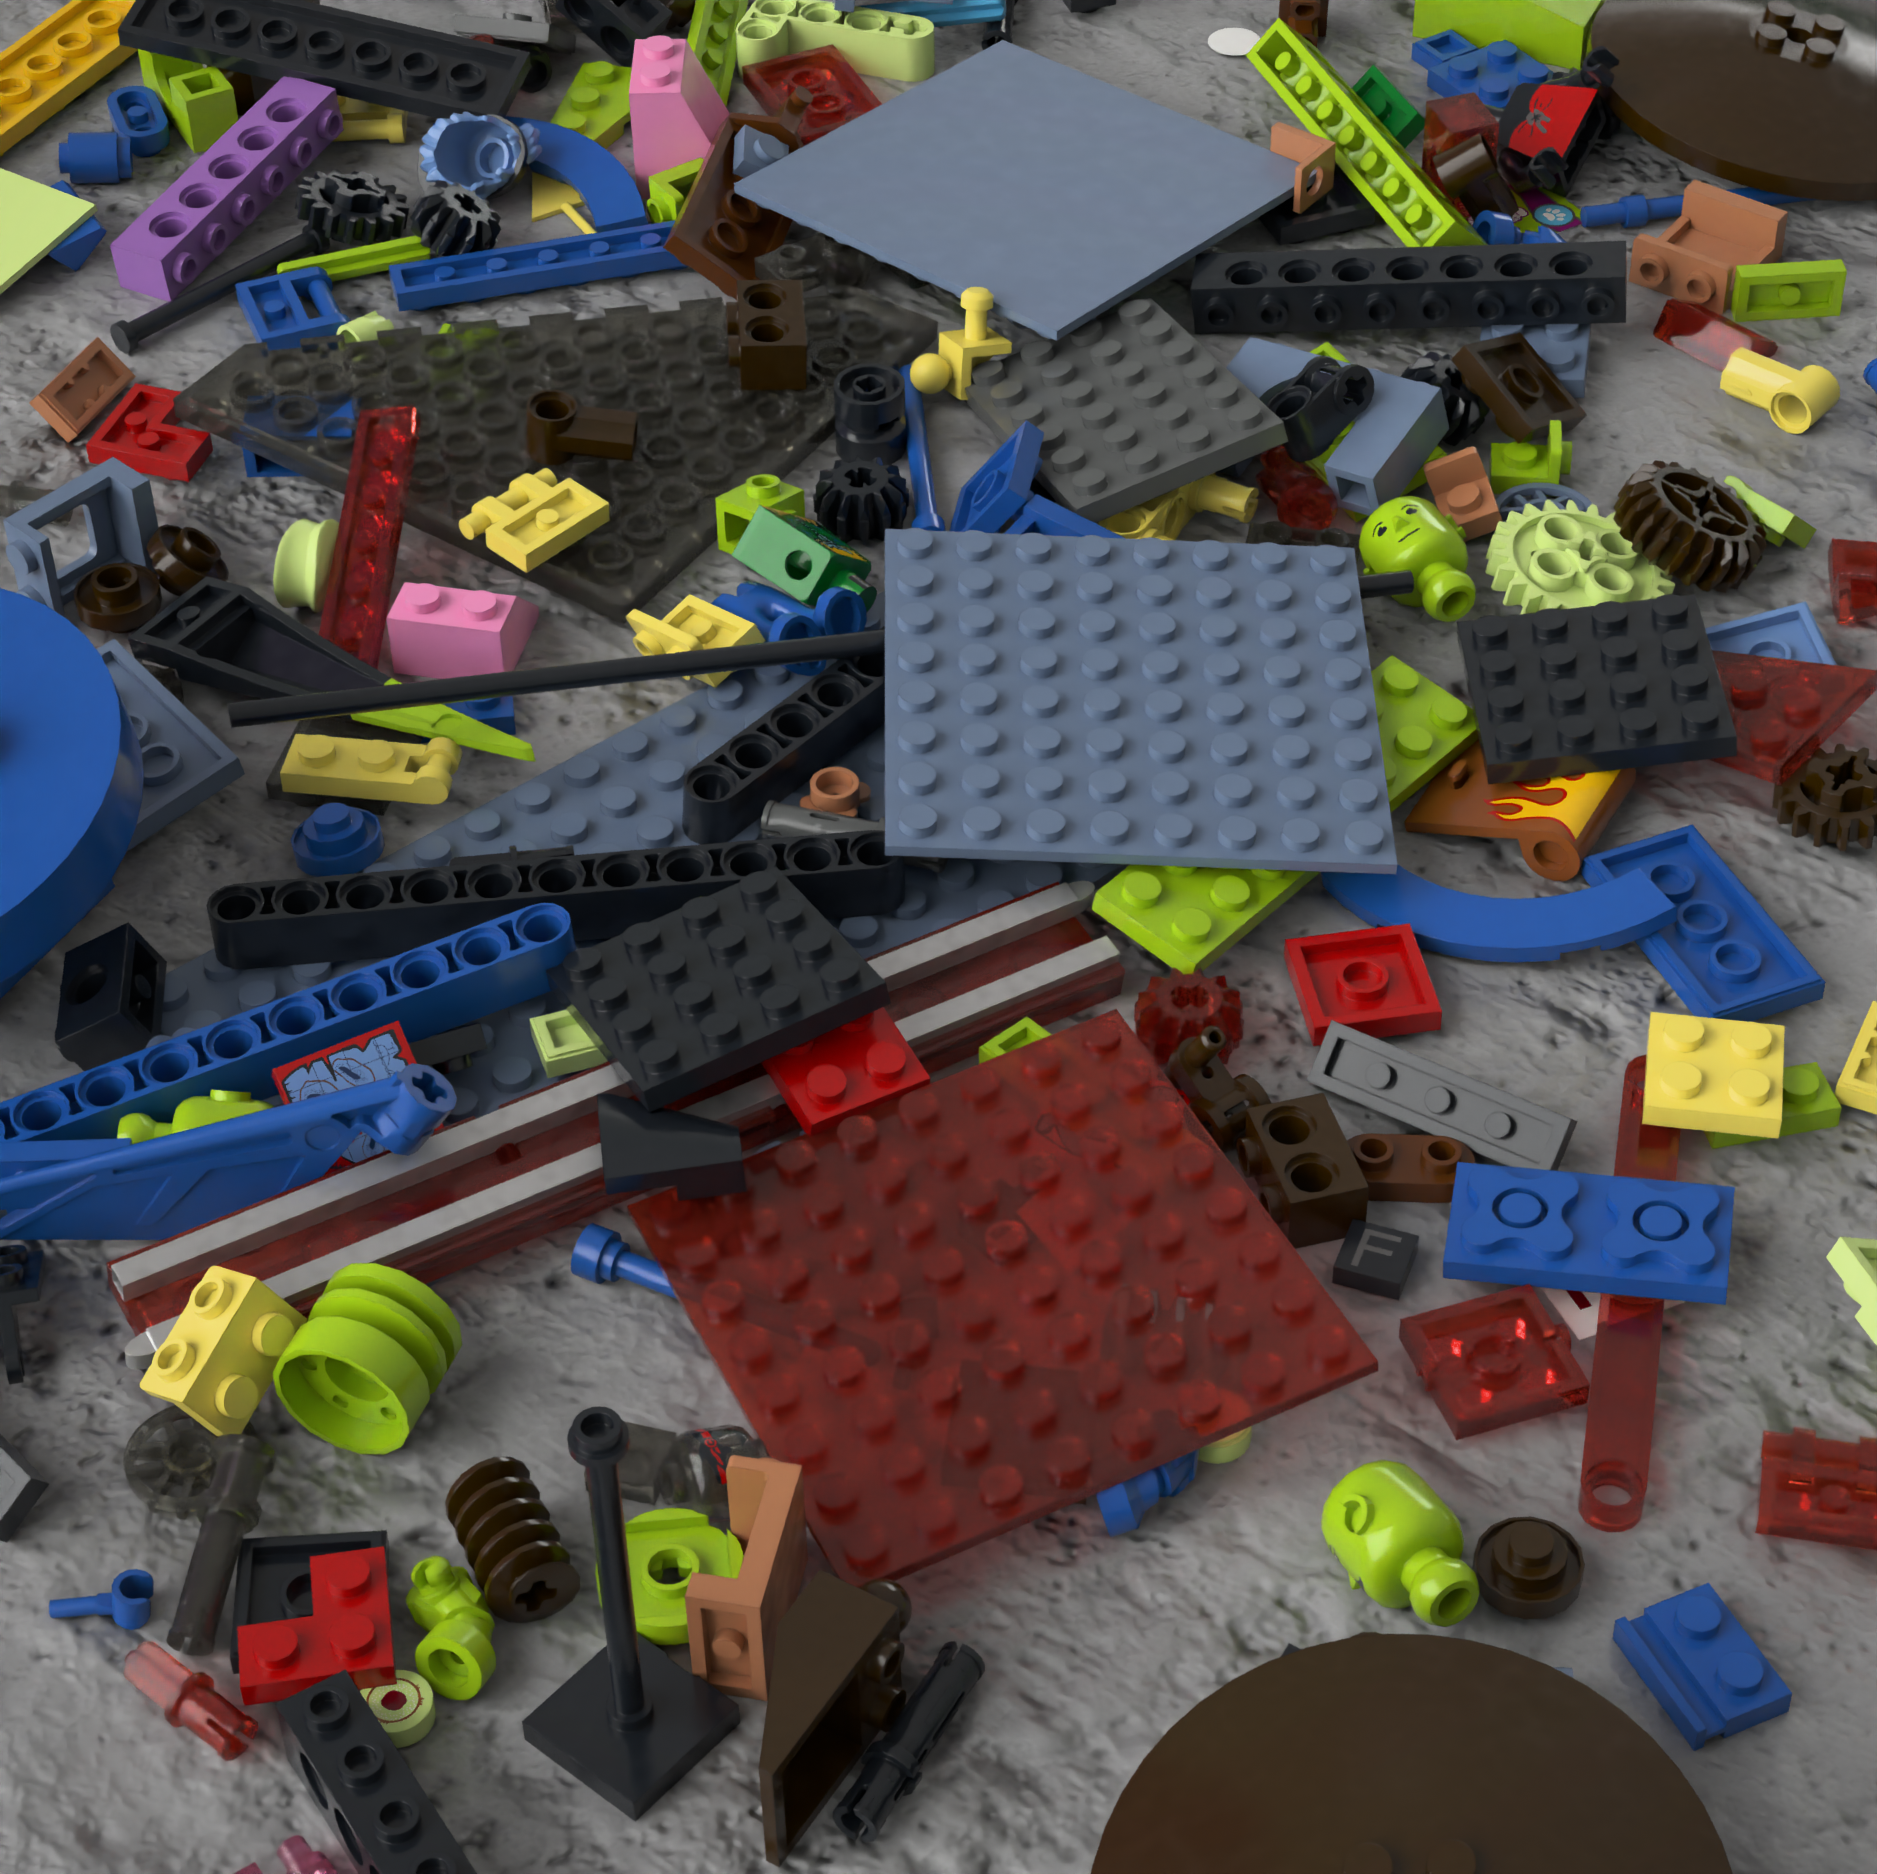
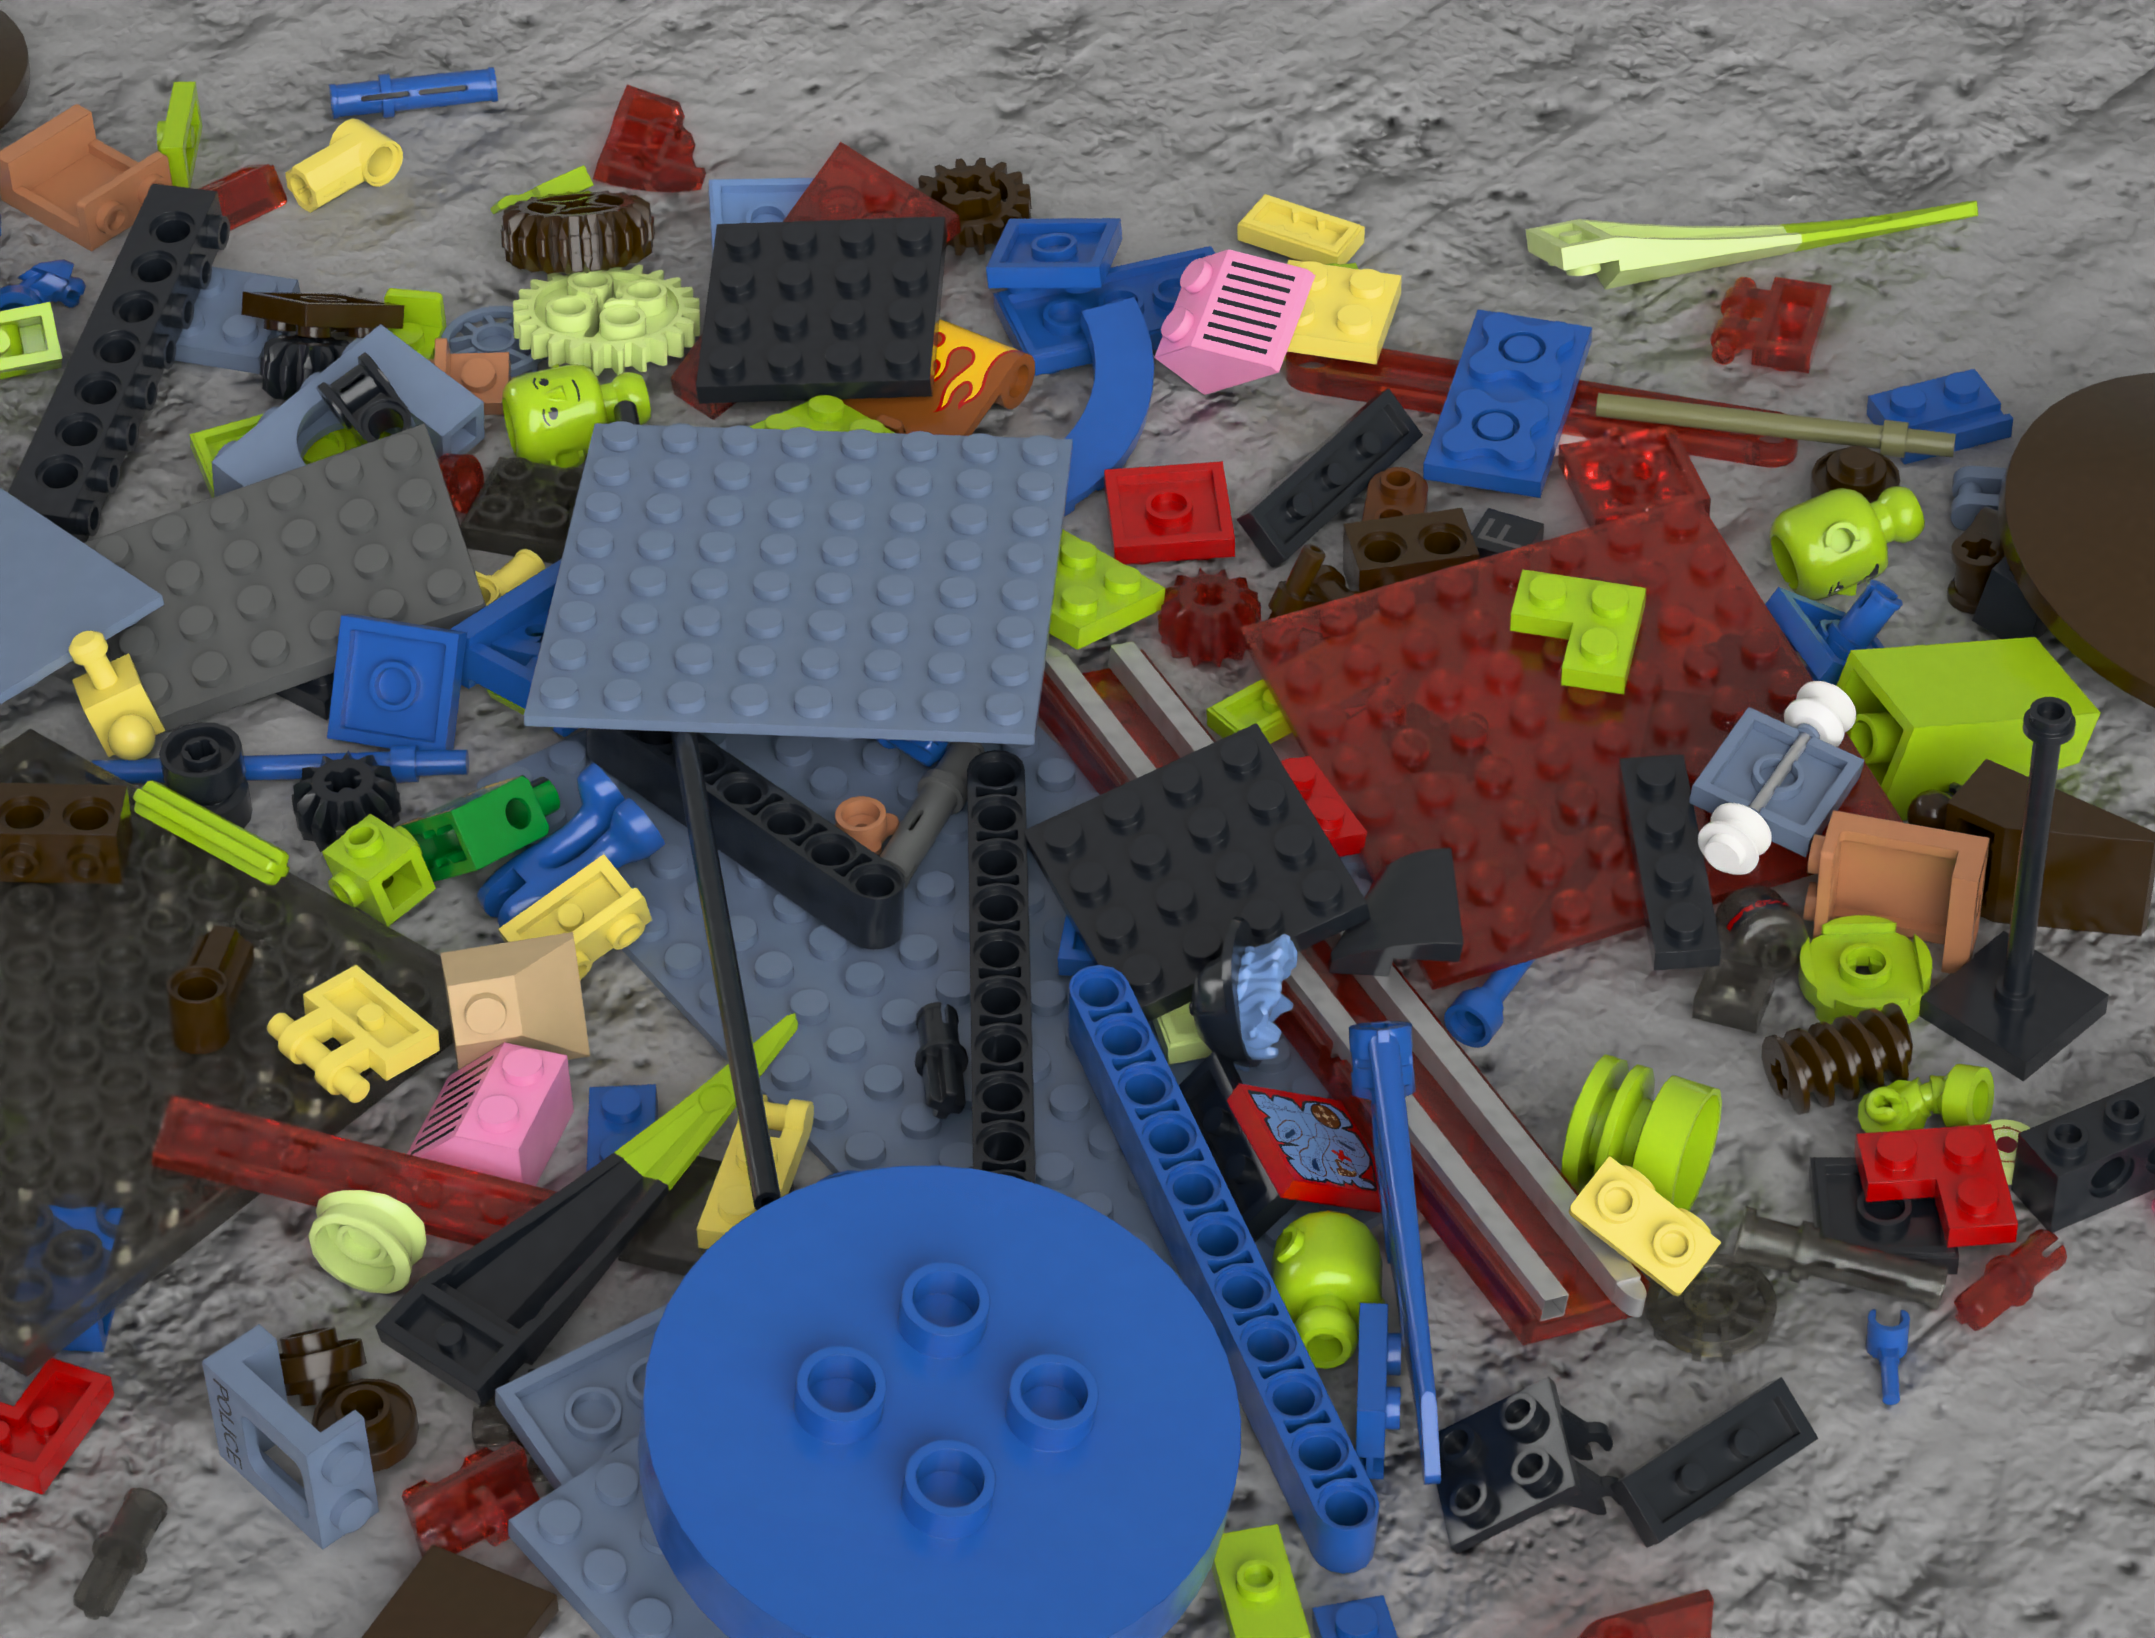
camera: 85 degrees left, 0 degrees up
(523, 1019) = (1242, 996): none -> hair
(557, 585) = (516, 996): none -> tan slope
(771, 1361) = (1669, 862): none -> black plate
(790, 424) = (211, 833): none -> lime axle
(873, 1429) = (1777, 779): none -> sand blue plate
(1067, 1641) = (1948, 707): none -> lime slope
(1125, 1278) = (1595, 618): none -> lime plate
(1208, 1527) = (1827, 634): none -> blue plate
(1601, 1584) = (1892, 438): none -> olive bar
(1642, 970) = (1232, 319): none -> bright pink slope
(1746, 848) = (1054, 254): none -> blue plate

